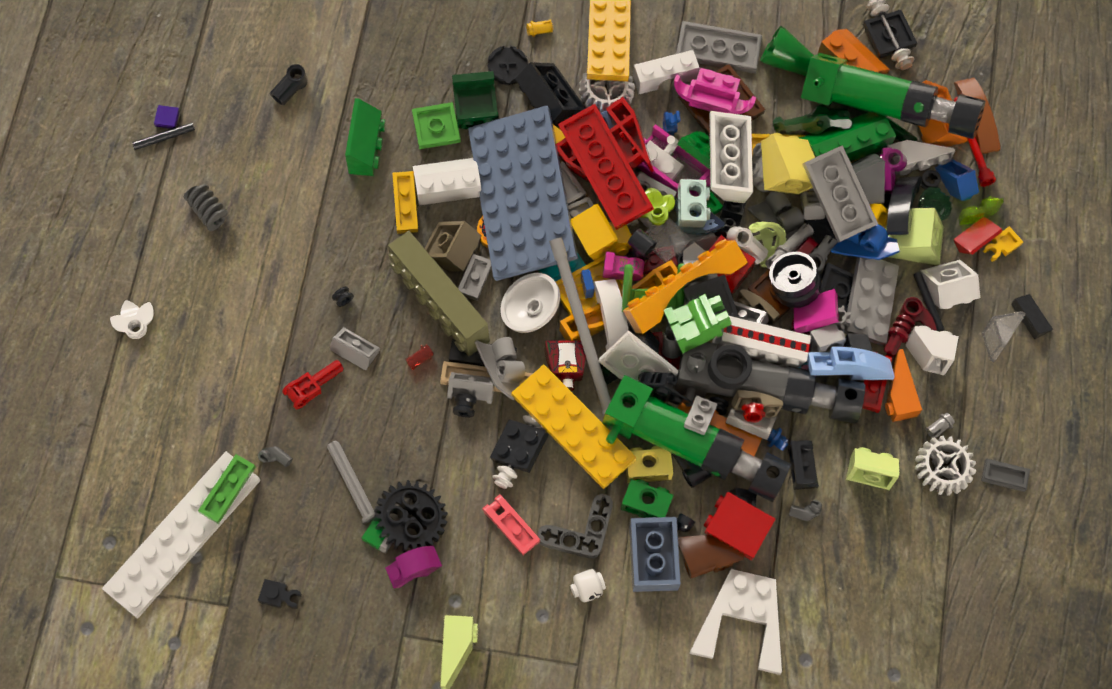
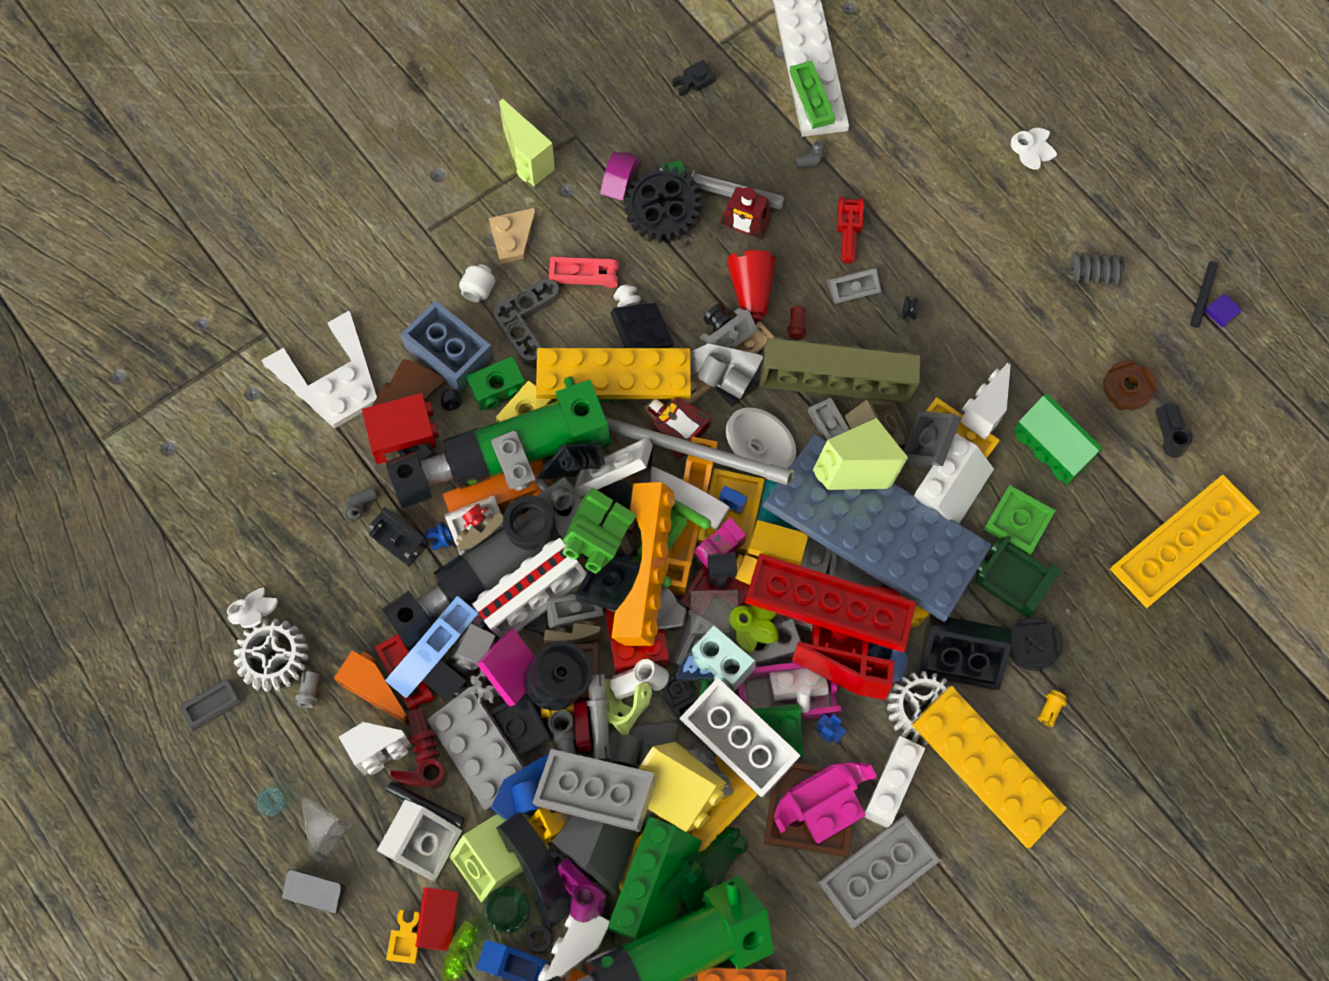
camera: 135 degrees right, 0 degrees up
(282, 141) = (1122, 397): none -> reddish brown plate
(362, 30) = (1184, 541): none -> yellow plate
(367, 454) = (747, 212): none -> dark red torso
(377, 191) = (990, 405): none -> white slope
(417, 404) = (753, 280): none -> red cone
(437, 201) = (931, 438): none -> dark grey plate
(495, 224) = (860, 459): none -> yellowish green slope
(527, 601) = (511, 234): none -> tan wing
(787, 53) = (805, 926): green cone -> none
(873, 468) = (331, 585): yellowish green slope -> none
(930, 502) = (251, 609): none -> white plate
(1016, 384) = (270, 802): none -> clear light blue plate

